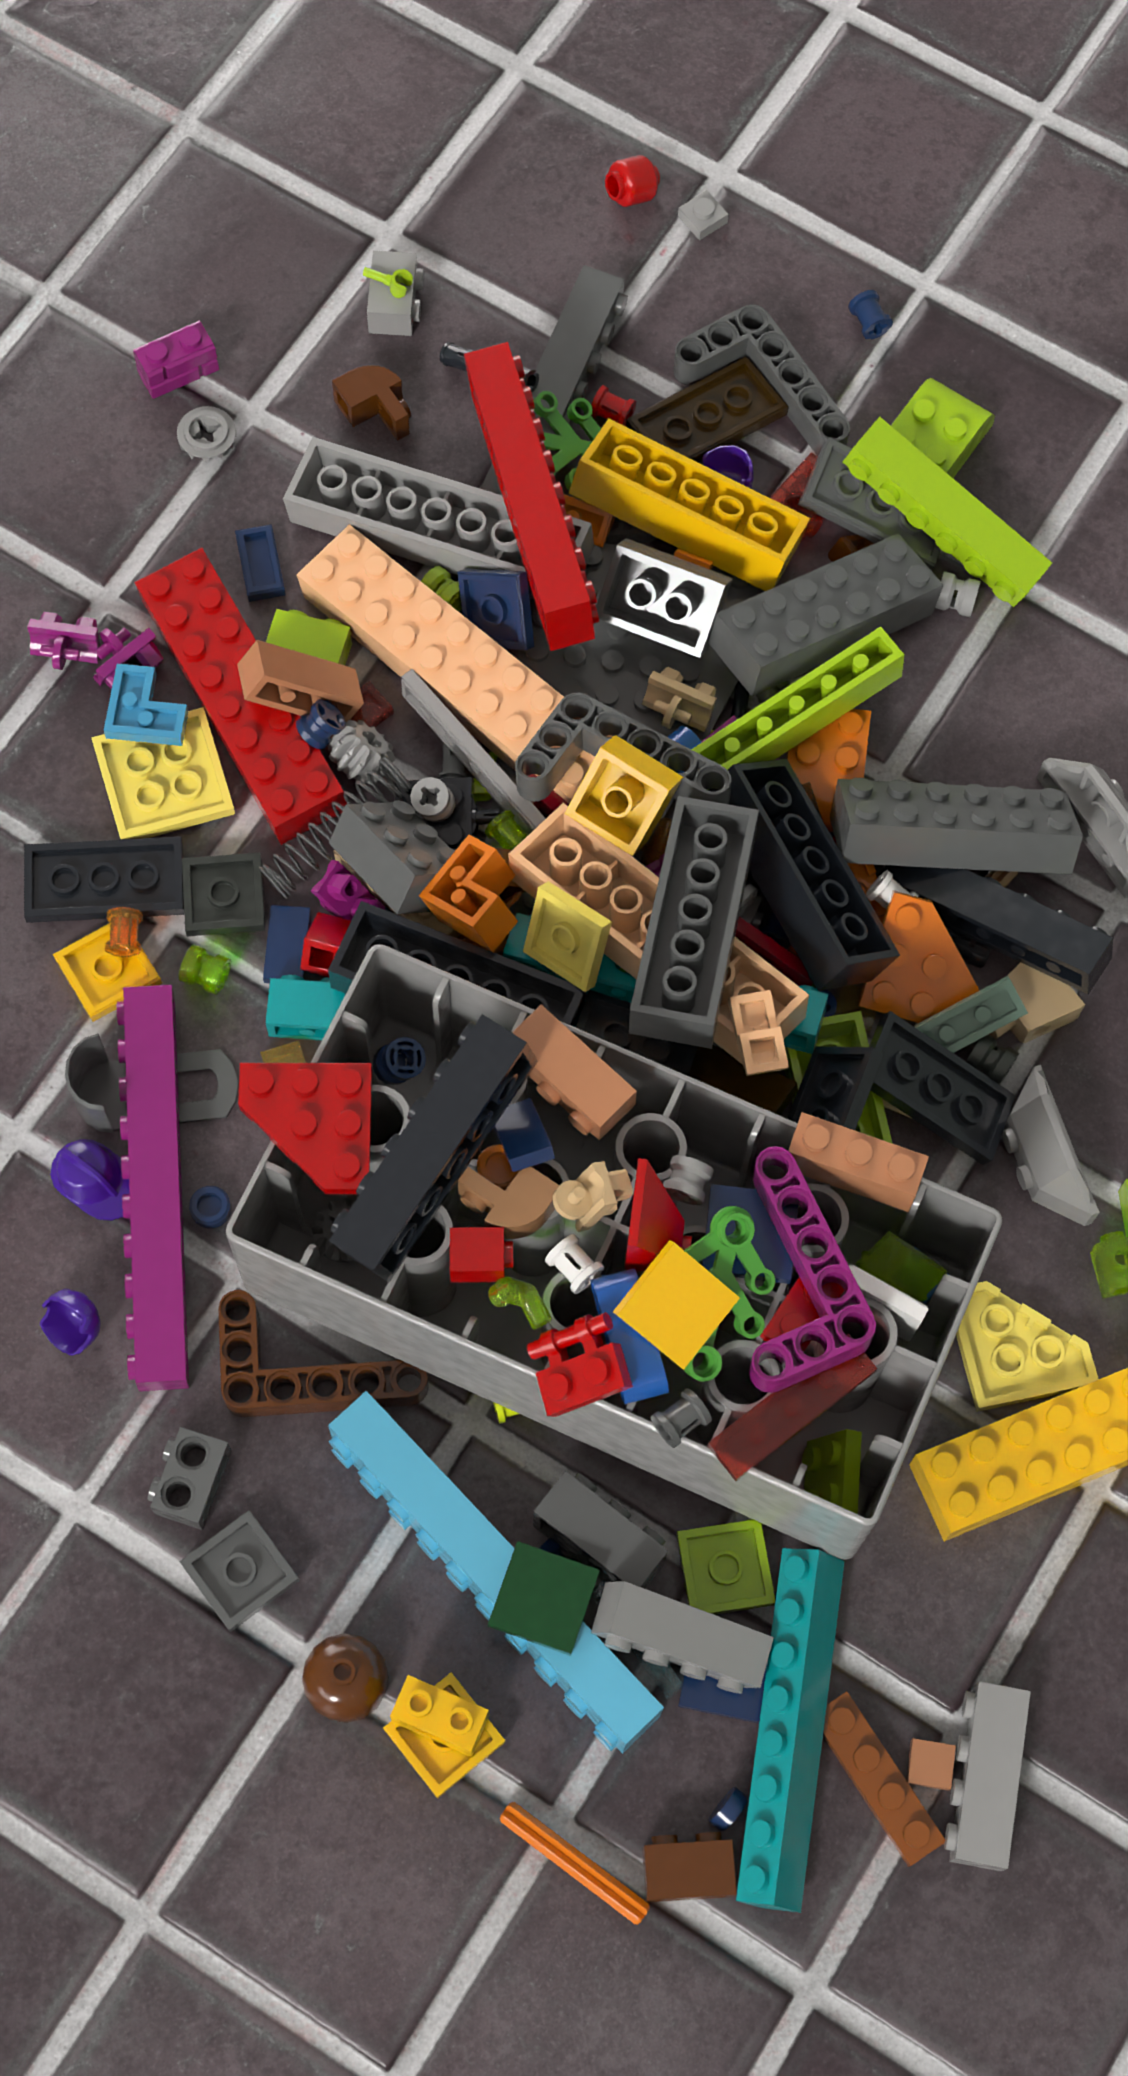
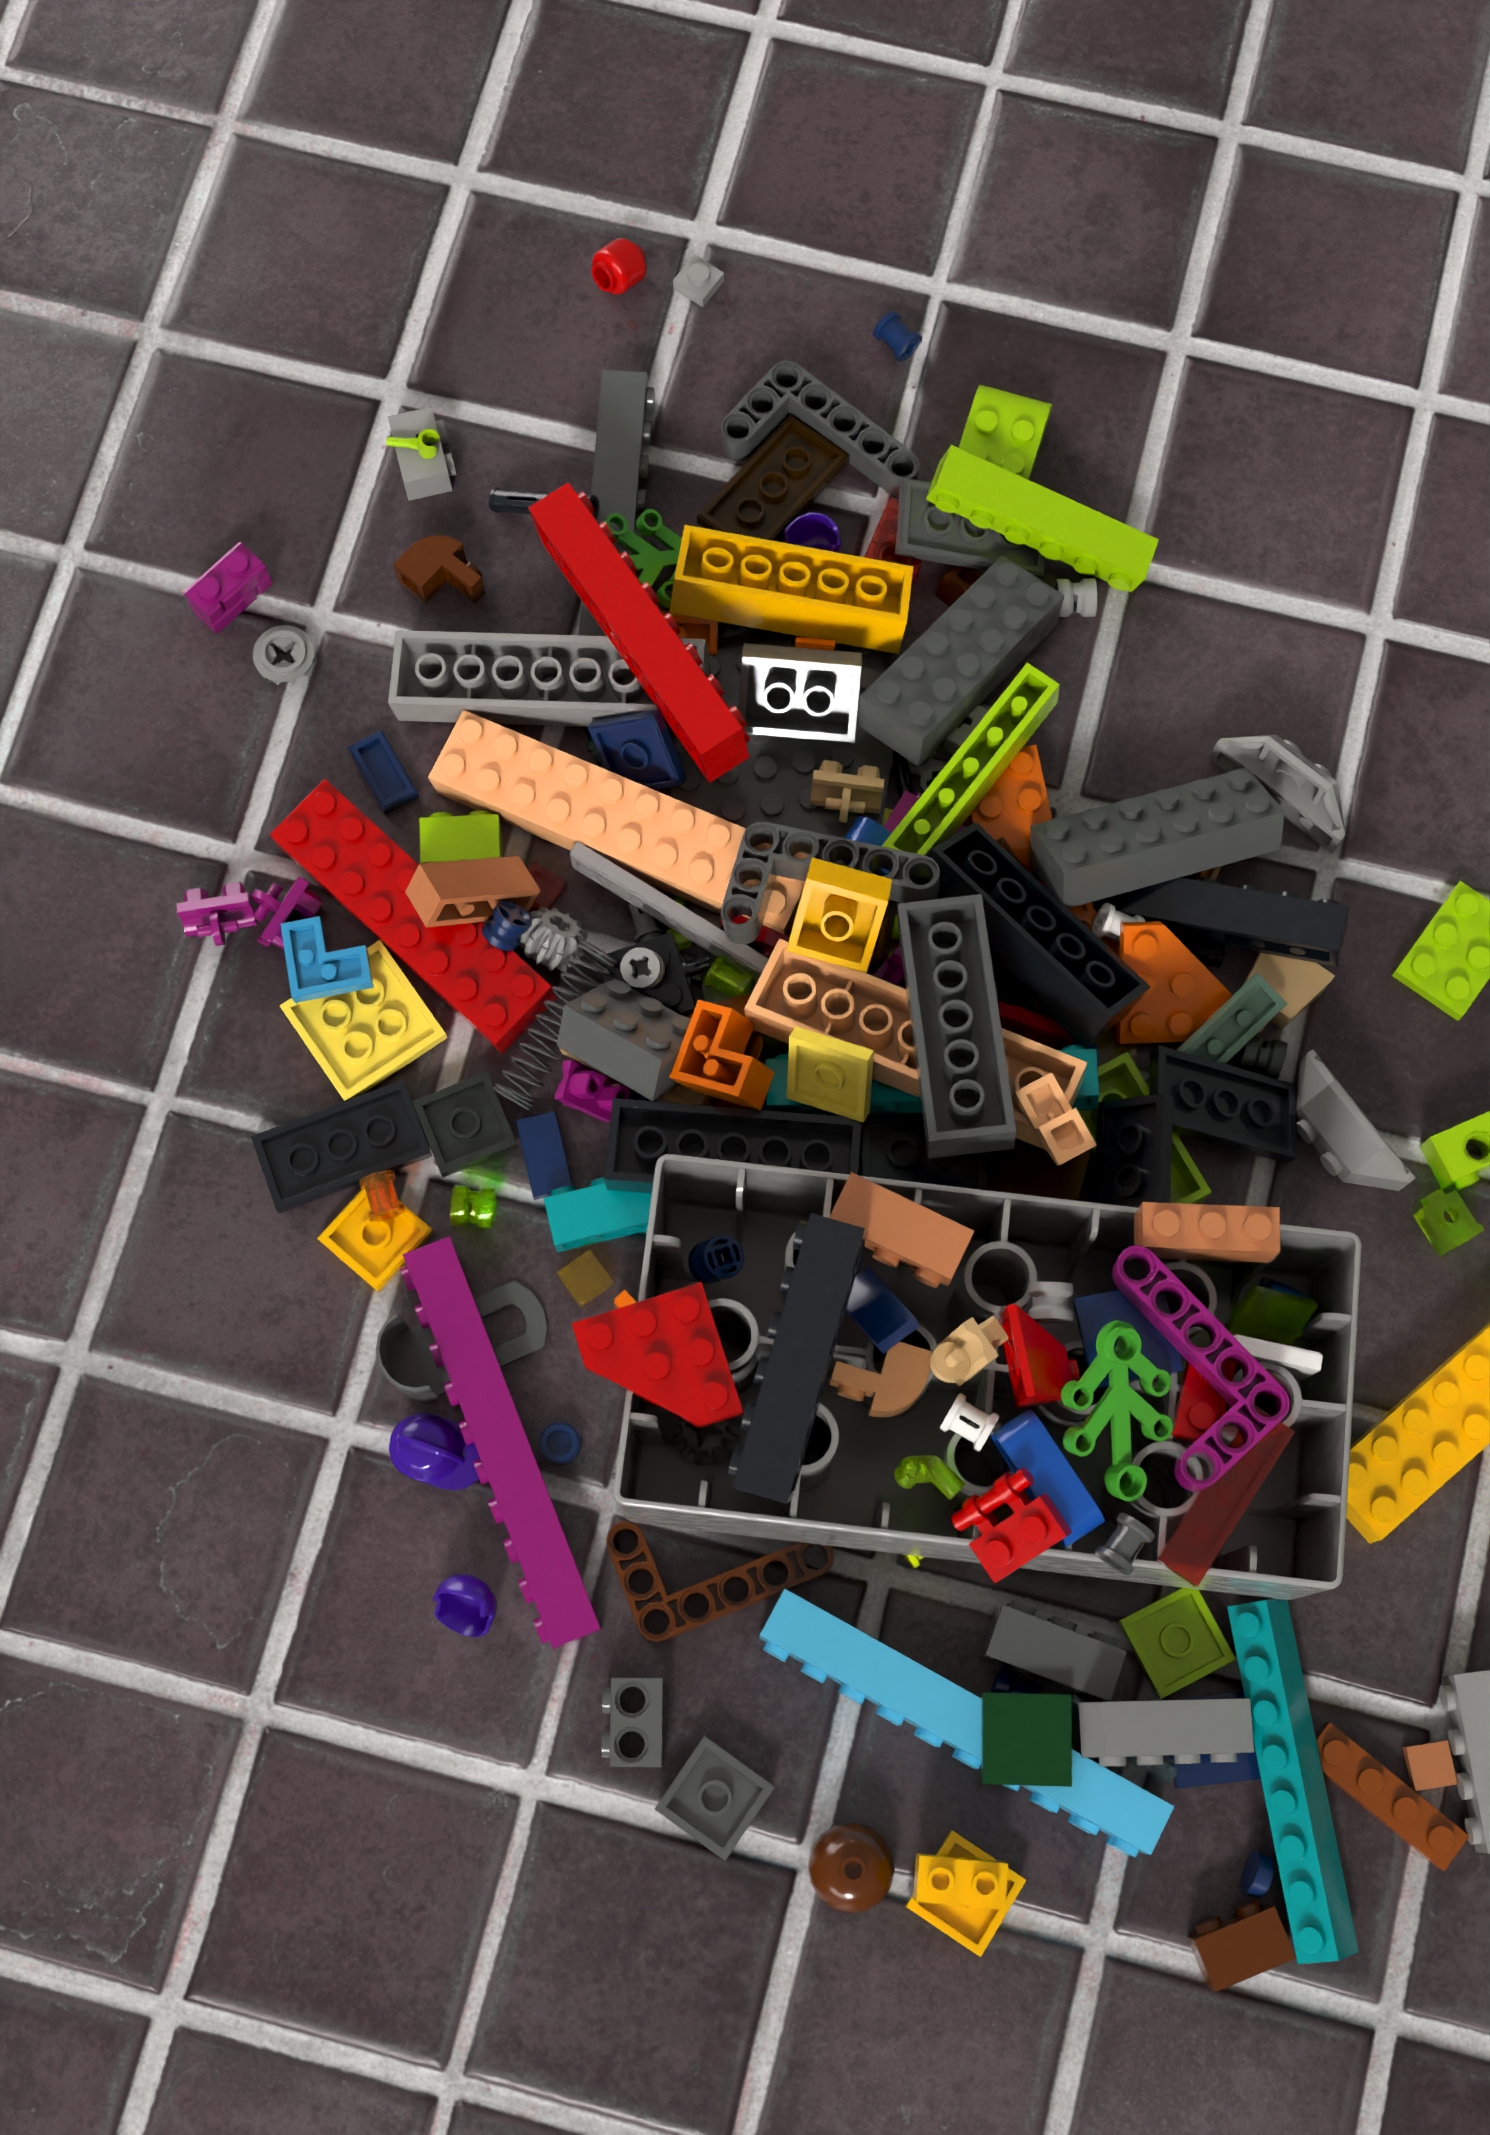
camera: 15 degrees left, 5 degrees up
(322, 943) = (586, 1145): red brick -> none
(440, 582) = (574, 743): lime wheel -> none
(479, 1254) = (875, 1443): red brick -> none
(495, 1166) = (858, 1349): orange tile -> none
(574, 1863) = (1129, 1974): orange axle -> none
(612, 406) = (678, 507): red bush -> none
(676, 1304) = (1089, 1438): yellow tile -> none
(834, 1468) = (1269, 1529): lime plate -> none
(1018, 1352) = (1397, 1341): light yellow plate -> none

